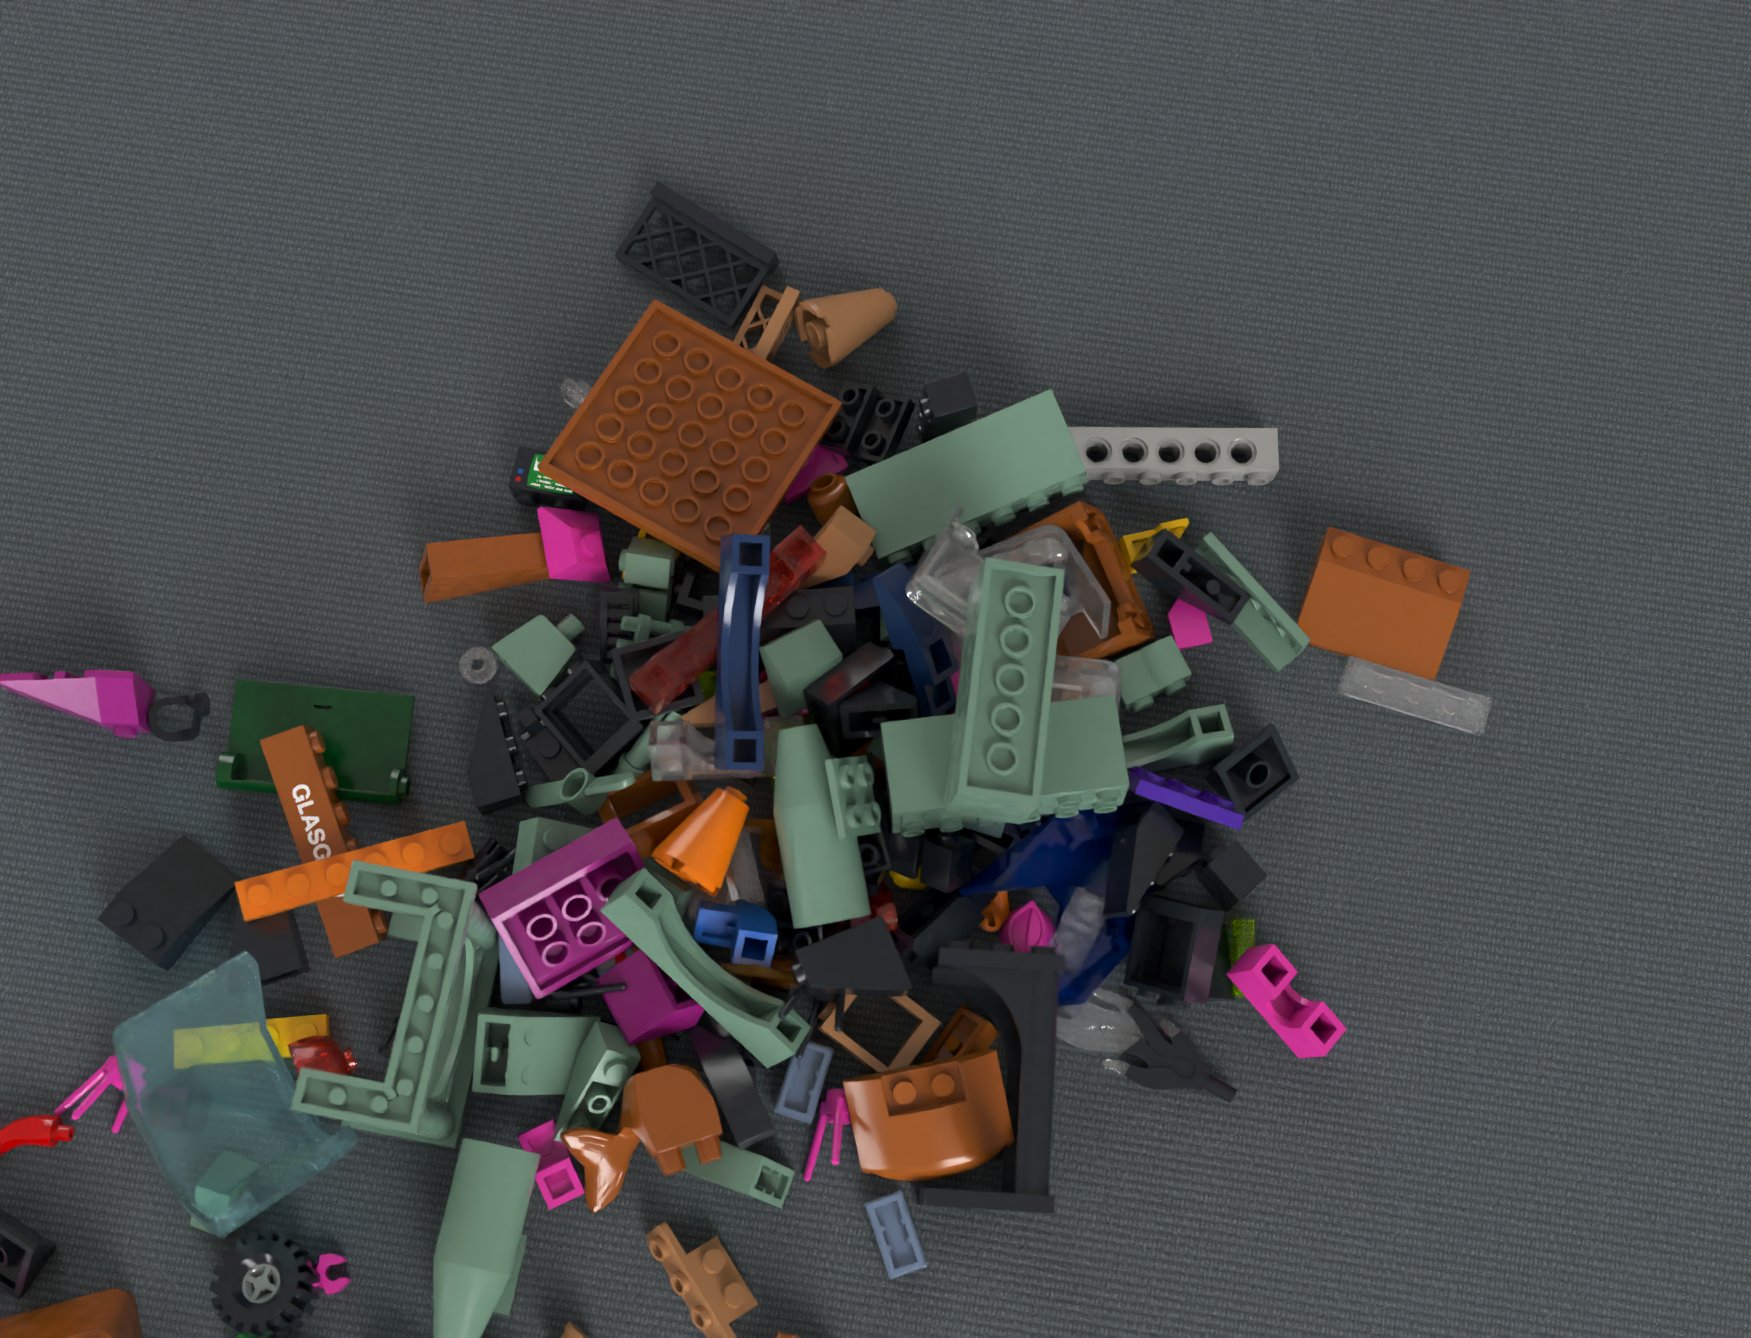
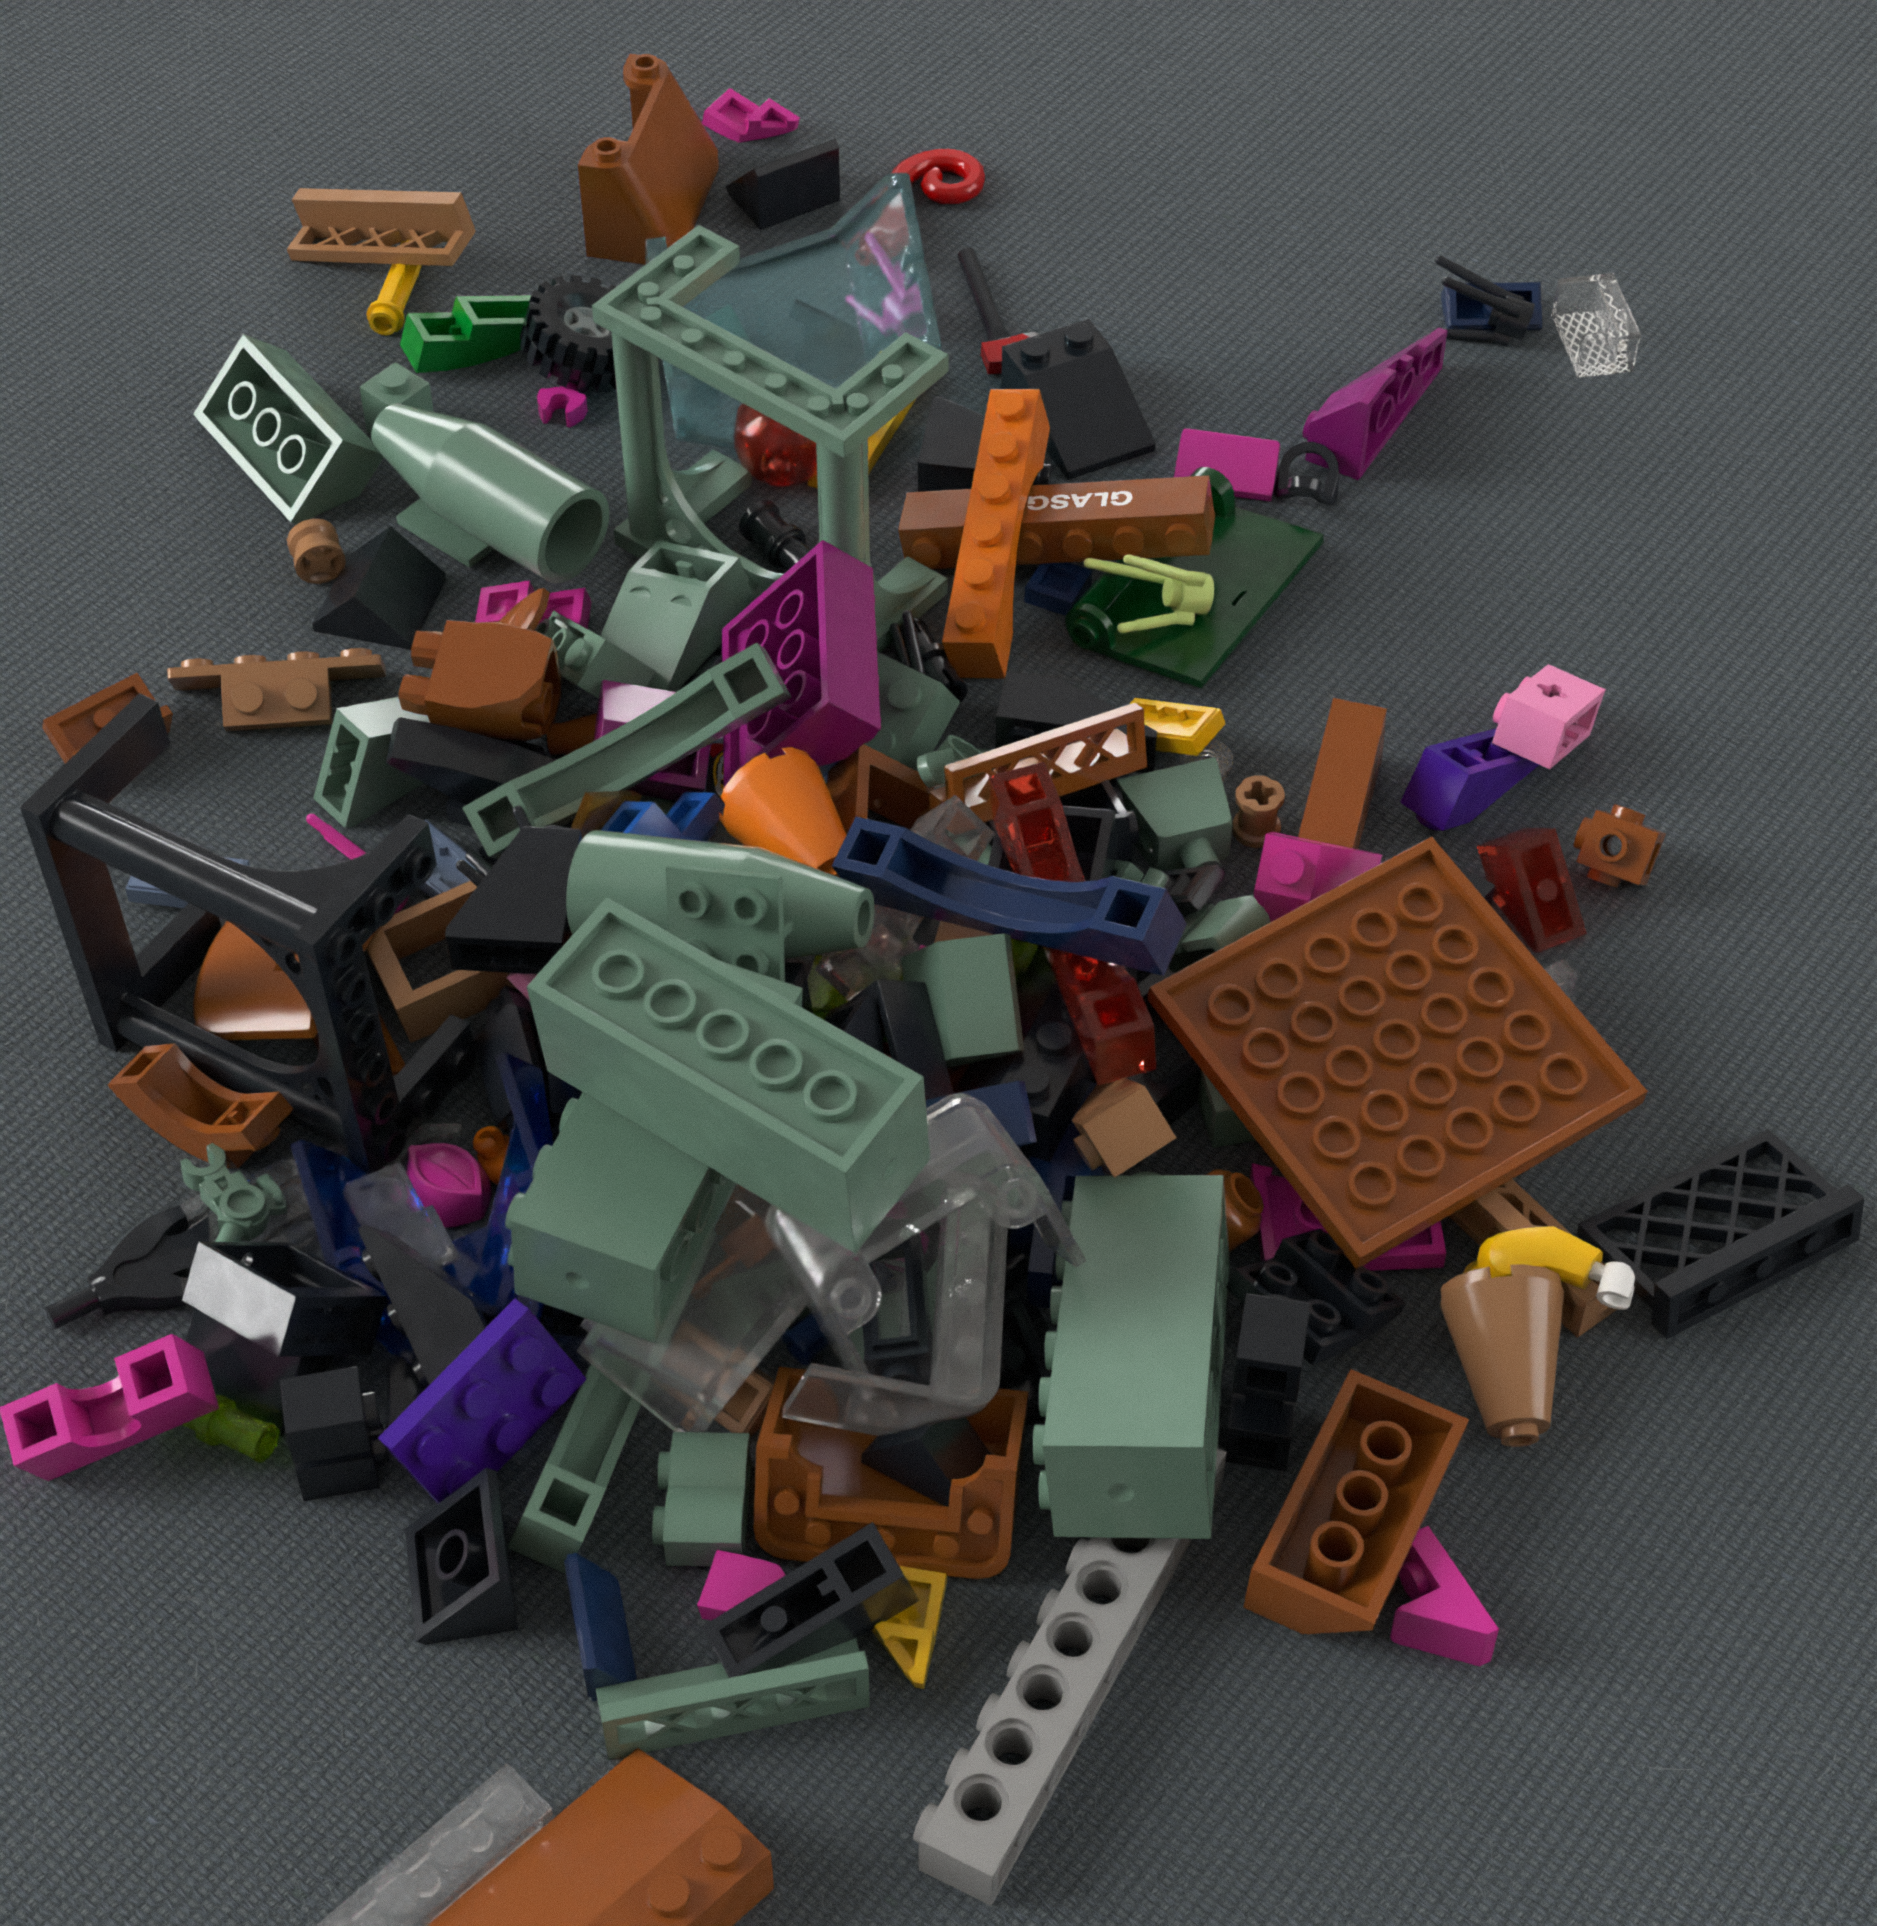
camera: 120 degrees right, 25 degrees down
(130, 983) = (996, 333): none -> black piece
(190, 774) = (1243, 460): none -> dark pink slope
(348, 735) = (1182, 590): none -> yellowish green plant
(354, 472) = (1547, 716): none -> bright pink brick
(367, 825) = (1057, 586): none -> dark blue plate
(418, 502) = (1462, 780): none -> dark purple slope
(444, 395) = (1638, 848): none -> dark orange brick
(465, 696) = (1181, 726): none -> yellow plate
(495, 435) = (1533, 886): none -> clear red slope
(517, 603) = (1258, 809): none -> medium nougat bush
(566, 732) = (1071, 766): none -> dark orange fence
(586, 1280) = (382, 593): none -> black slope
(788, 320) = (1562, 1253): none -> yellow arm
(997, 350) = (1353, 1509): none -> dark orange slope
(1012, 297) = (1444, 1609): none -> dark pink slope
(1068, 1097) = (195, 1110): none -> dark orange arch
(1115, 1029) = (240, 1207): none -> sand green piece
(1247, 685) = (599, 1624): none -> dark blue slope

